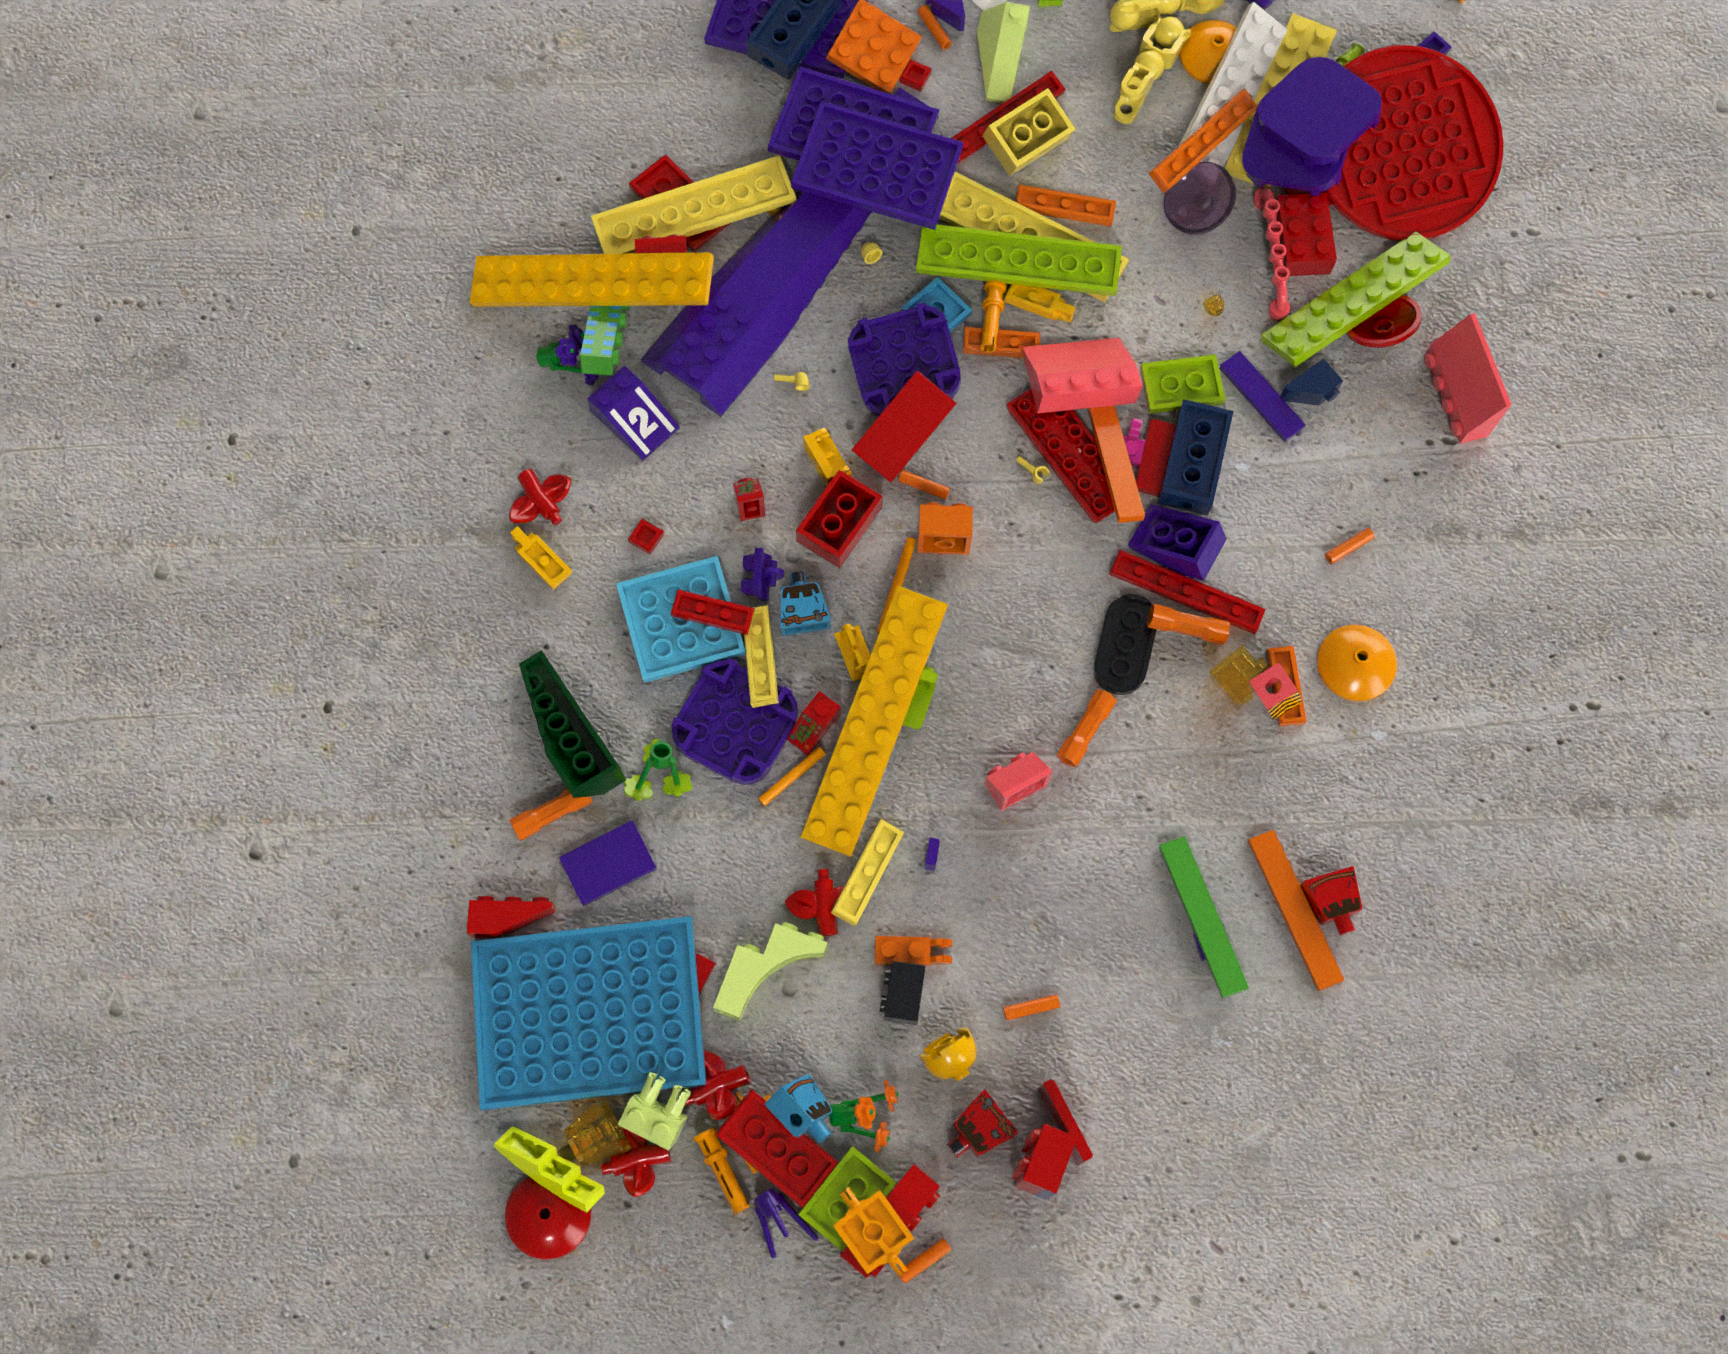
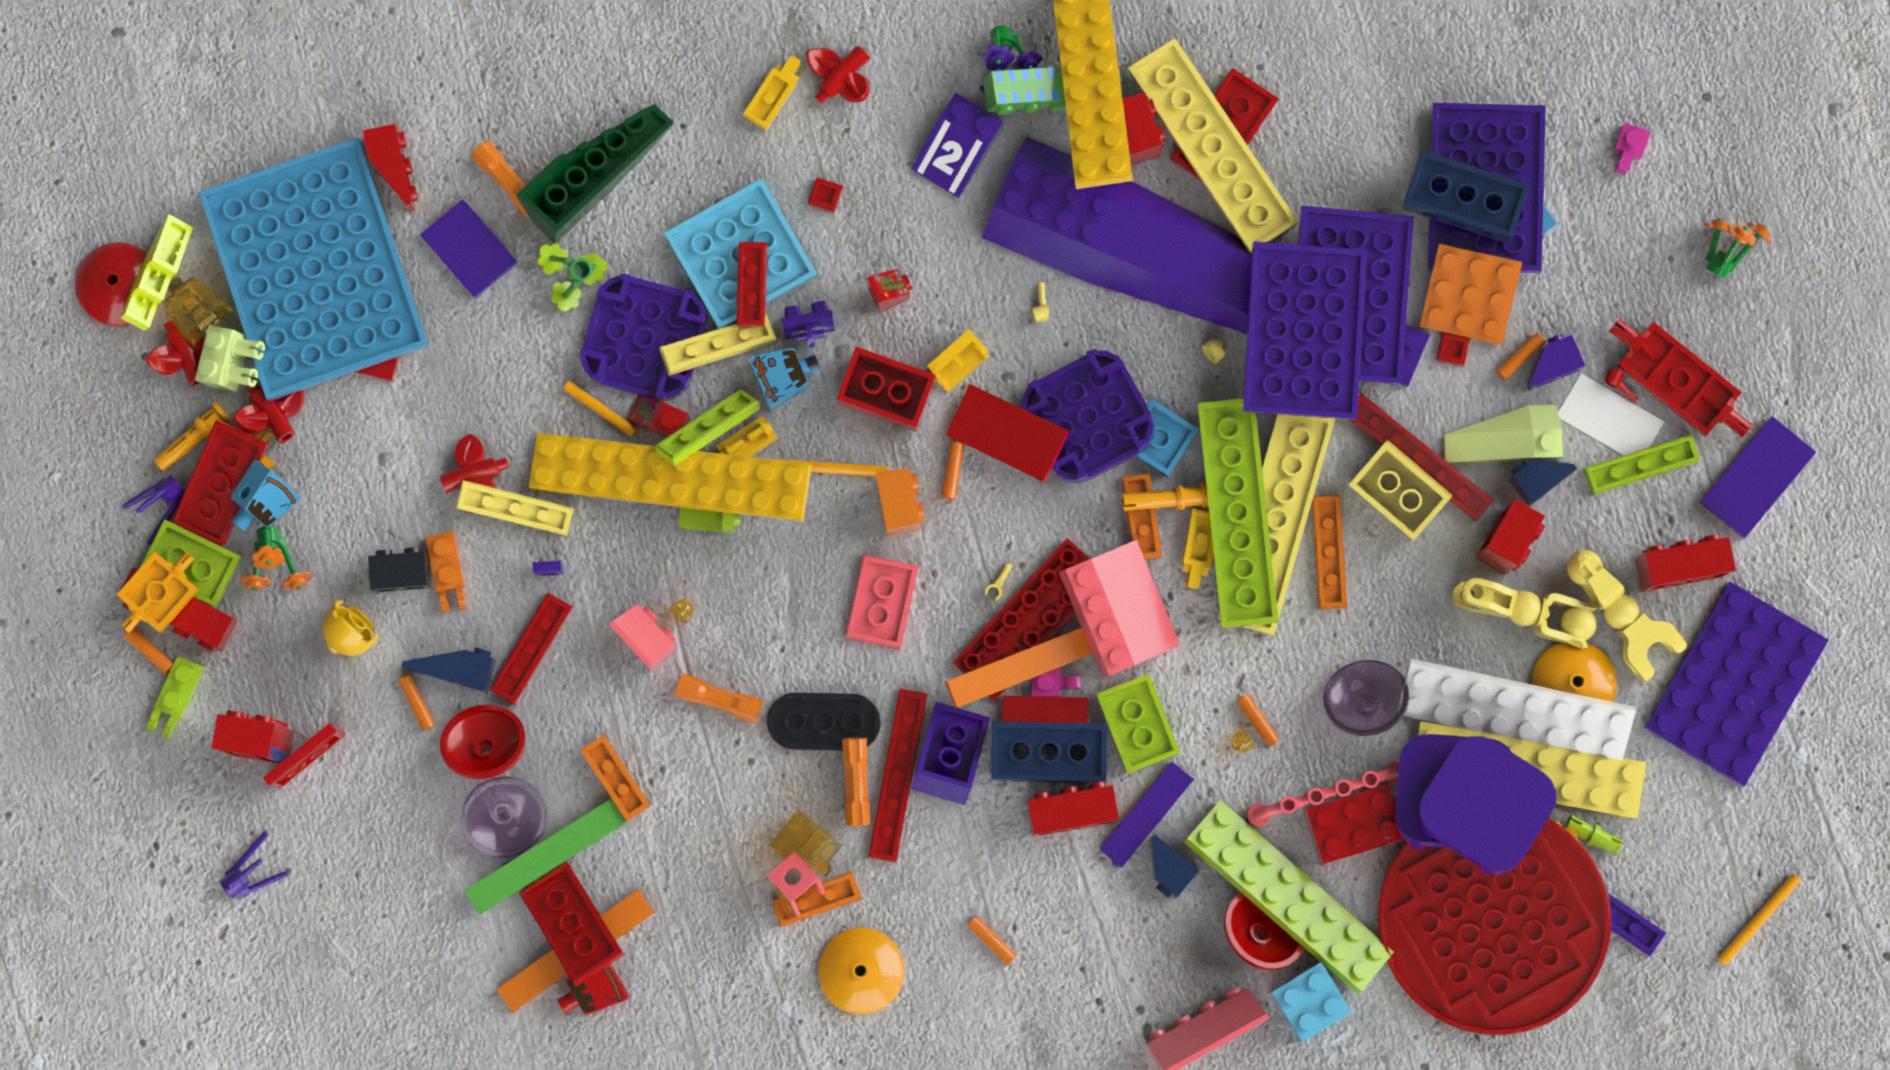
camera: 80 degrees right, 10 degrees up
(751, 967) = (393, 415): yellowish green arch -> none
(837, 677) = (707, 427): none -> lime tile
(973, 1242) = (176, 695): none -> lime hinge
(981, 1127) = (285, 677): torso -> none
(998, 743) = (682, 610): none -> clear yellow hinge
(1003, 889) = (531, 648): none -> red tile
(1008, 956) = (459, 667): none -> dark blue slope
(1027, 570) = (882, 601): none -> coral tile
(1042, 35) = (1538, 478): none -> dark blue slope
(1071, 947) = (478, 731): none -> red dish
(1090, 55) = (1510, 536): none -> red brick
(1141, 836) = (615, 778): none -> orange plate
(1161, 944) = (508, 831): none -> clear purple dish
(1174, 1217) = (237, 880): none -> dark purple plant
(1198, 291) = (1258, 720): none -> orange piece
(1203, 140) = (1435, 687): orange tile -> none
(1251, 447) = (1072, 809): none -> red brick
(1273, 904) = (571, 923): none -> red tile
(1448, 300) = (1310, 1002): none -> medium azure brick

